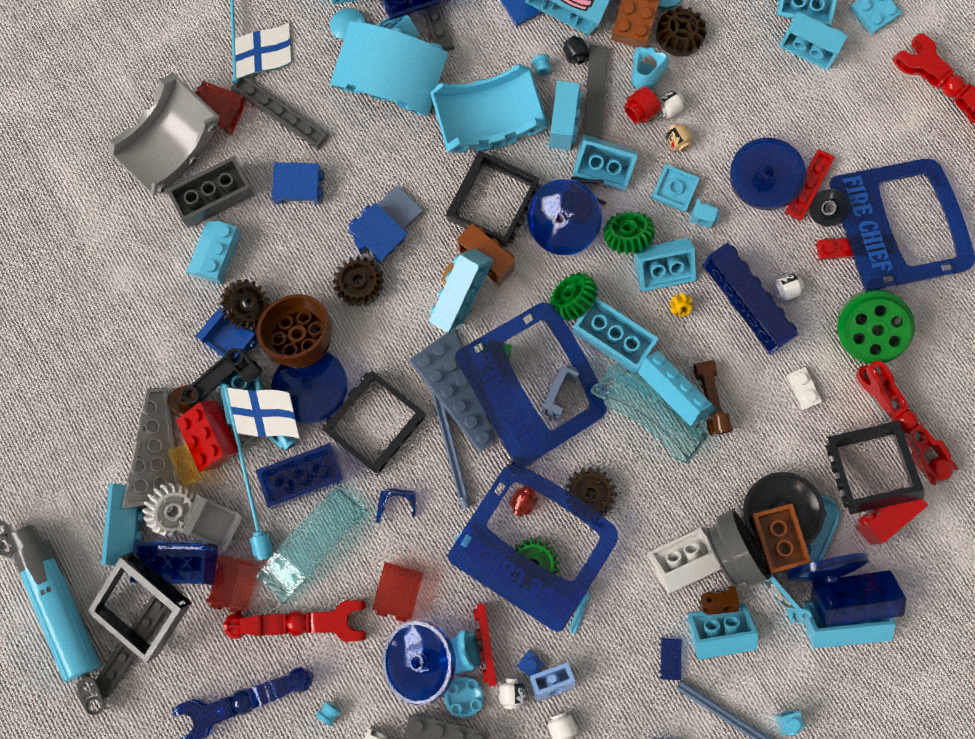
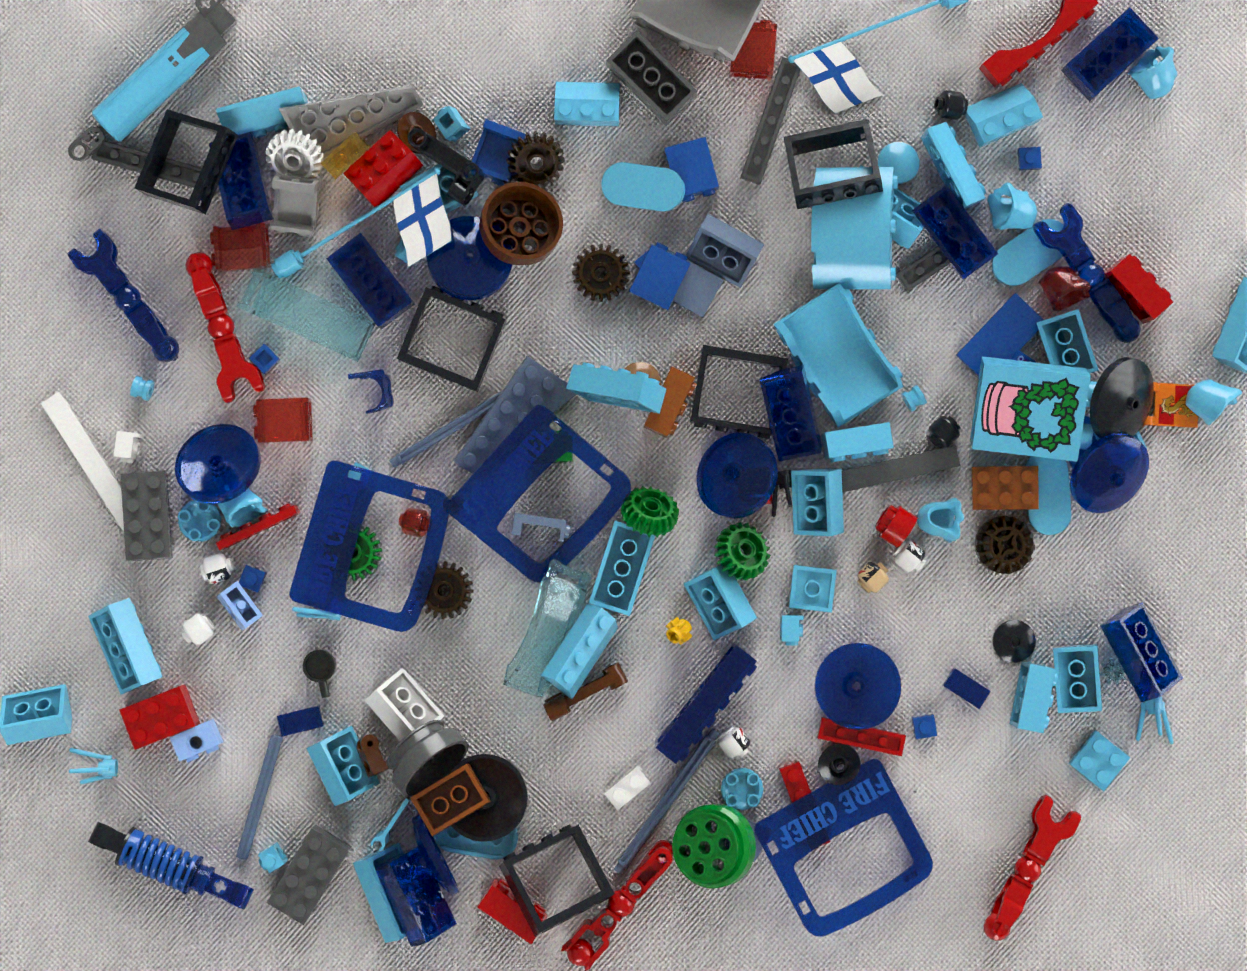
camera: 70 degrees right, 10 degrees up
(197, 366) = (451, 131): none -> medium azure brick
(298, 224) = (643, 186): none -> medium azure tile
(309, 66) = (829, 138): none -> black window
(338, 592) = (264, 358): none -> blue plate
(373, 176) = (724, 250): none -> sand blue slope
(525, 158) = (791, 413): none -> clear blue slope
(627, 626) = (319, 667): none -> pearl dark grey piece
(761, 54) = (1003, 641): none -> black dish
(790, 93) = (966, 688): none -> clear blue tile
(813, 134) = (924, 726): none -> blue plate
(813, 692) = (309, 874): none -> dark grey brick
(829, 293) = (742, 789): none -> medium azure dish
(829, 364) = (666, 801): none -> sand blue piece

